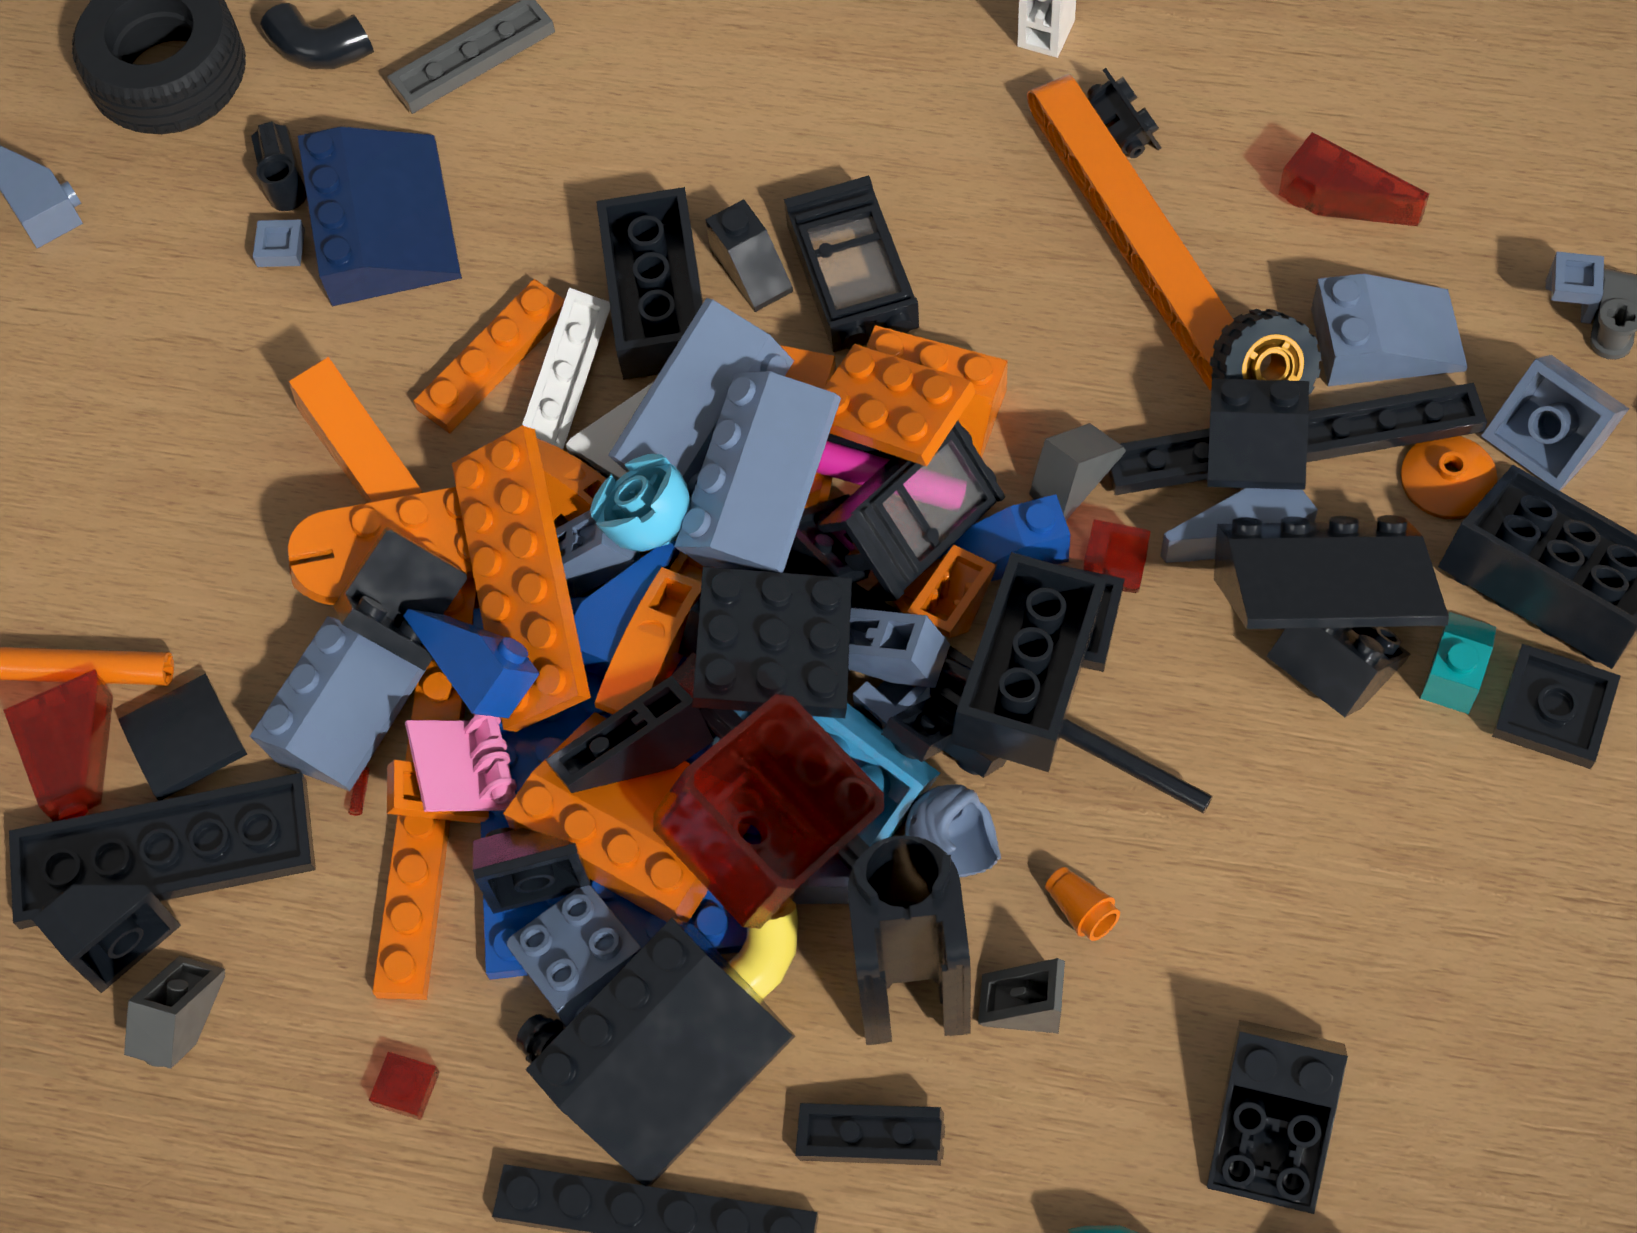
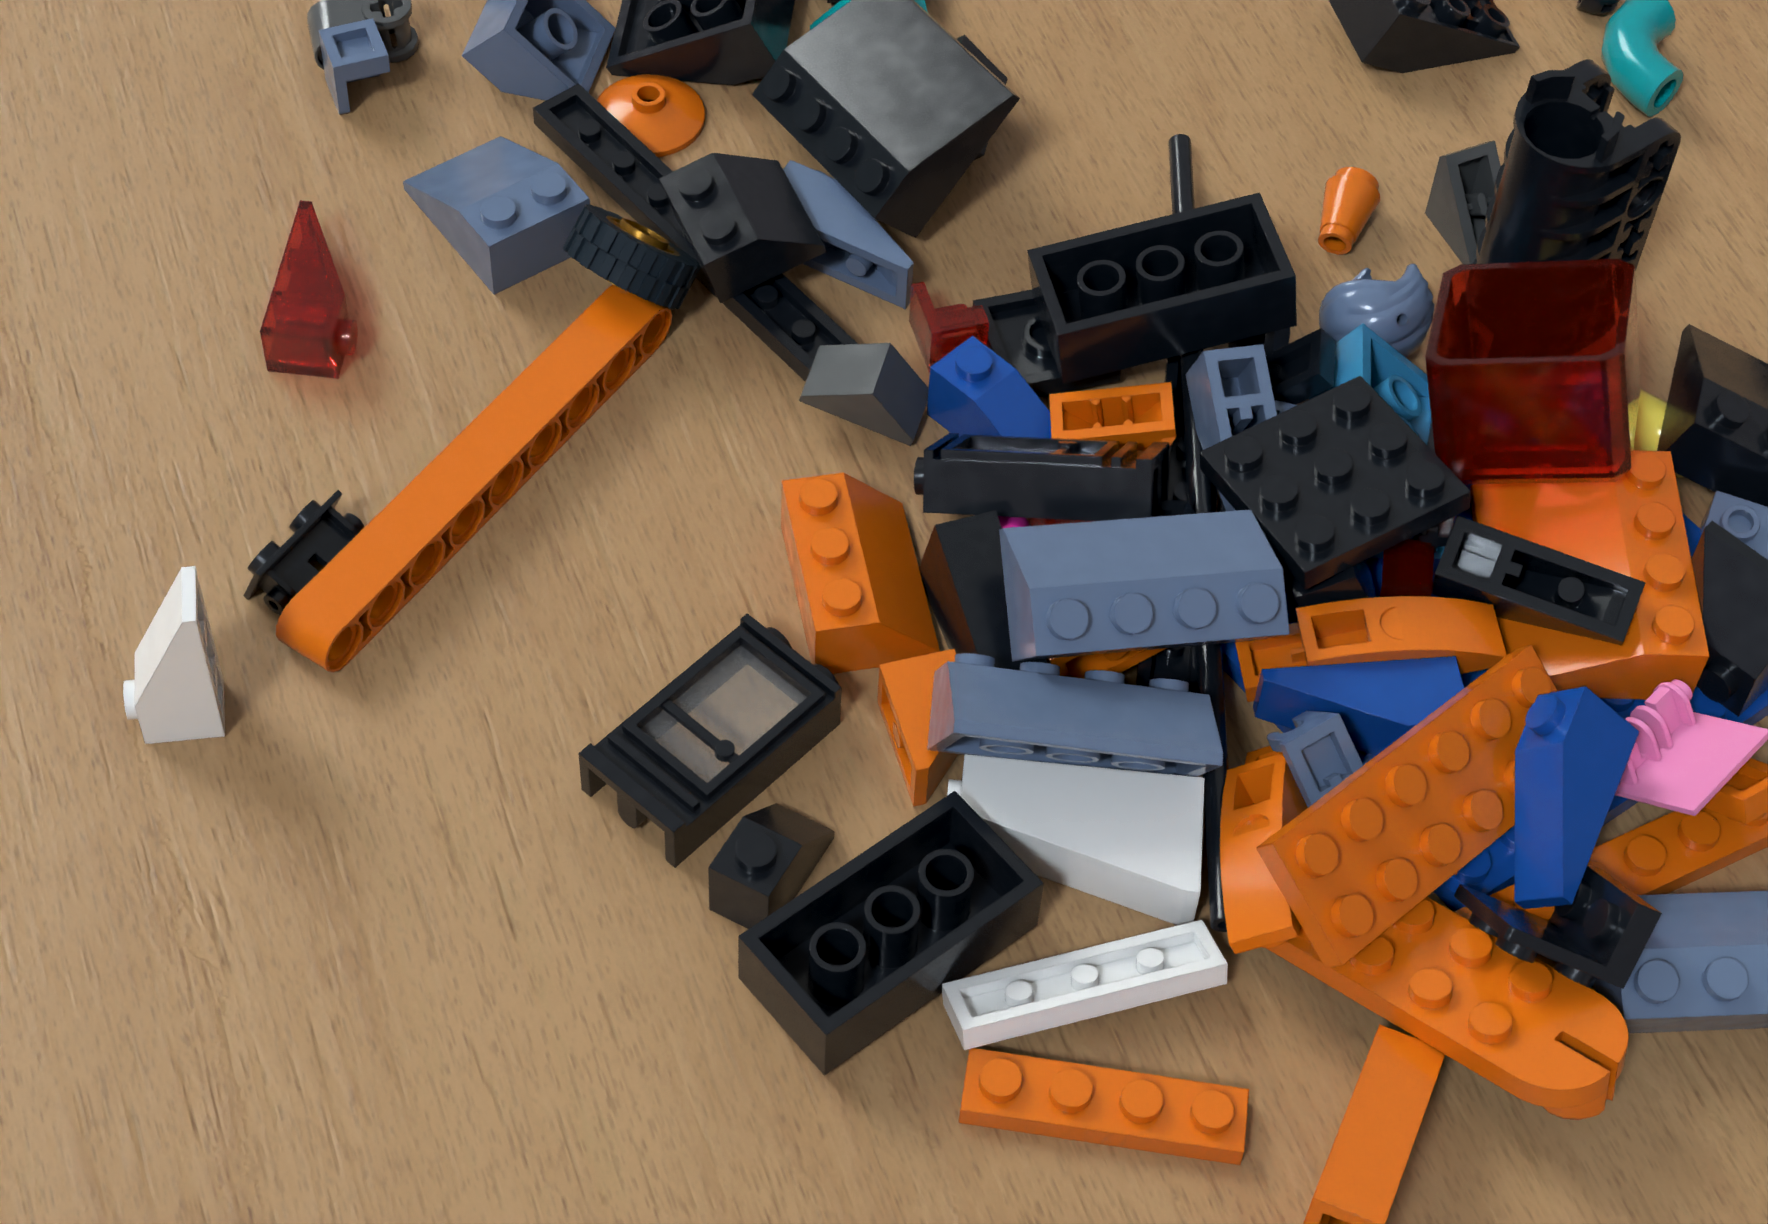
camera: 130 degrees left, 10 degrees down
(643, 505) = (1270, 680): medium azure cylinder -> none
(870, 1134) = (1700, 277): black hinge -> none
(896, 404) = (947, 500): orange plate -> none

